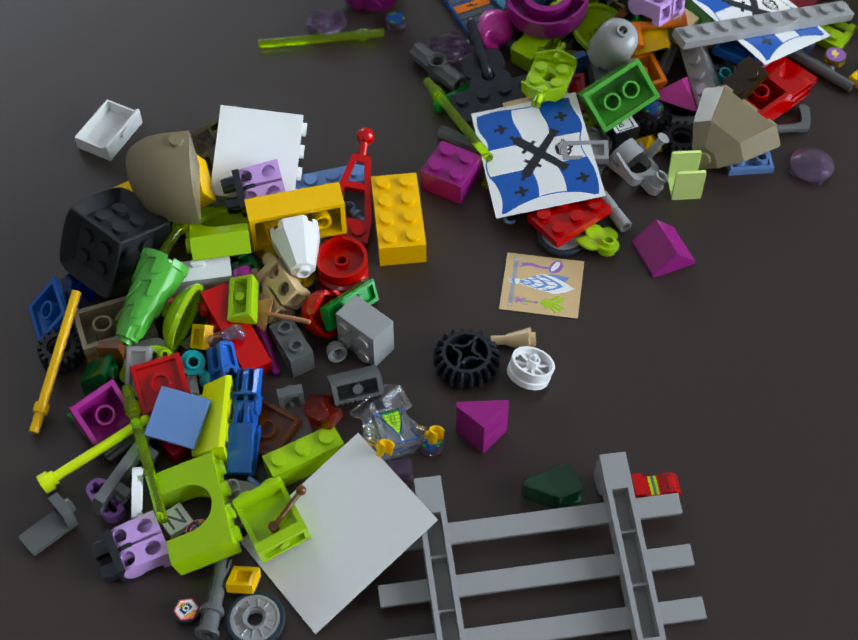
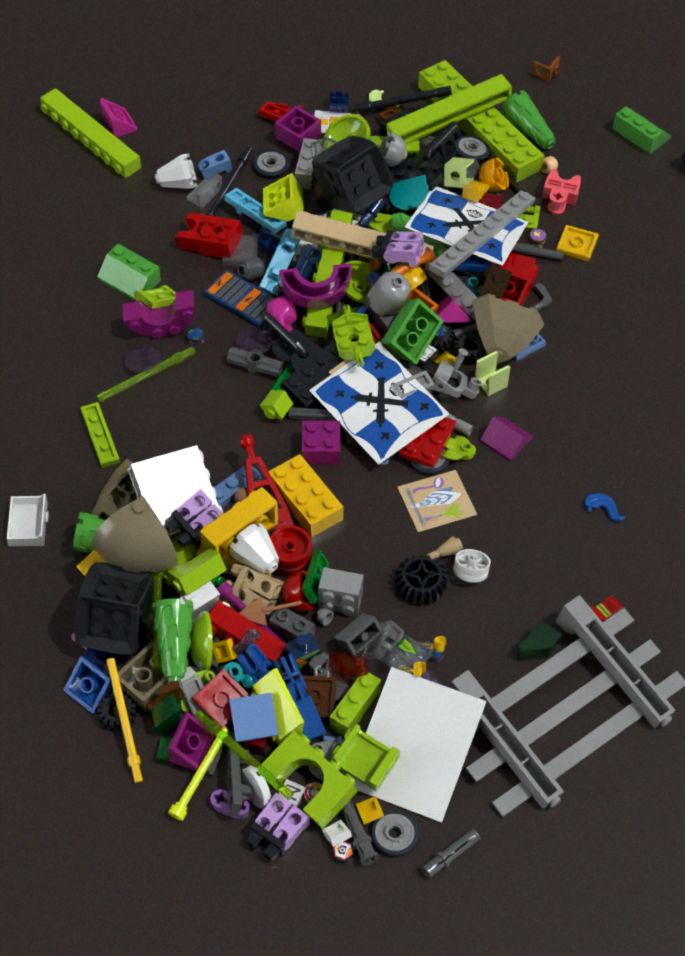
camera: 30 degrees left, 0 degrees up
(50, 527) = (204, 842): dark grey bracket -> none
(192, 587) = (337, 833): none -> white tile
(236, 76) = (100, 435): none -> lime tile
(243, 299) = (240, 608): lime slope -> none
(274, 525) = (372, 761): reddish brown hinge -> none
(280, 372) = (303, 650): none -> dark blue torso
(429, 116) = (276, 404): none -> lime brick
(438, 95) = (272, 384): clear neon green bar -> none
(482, 422) = (463, 620): magenta slope -> none
(733, 364) = (602, 500): none -> blue piece
(811, 165) = (569, 328): clear purple dish -> none

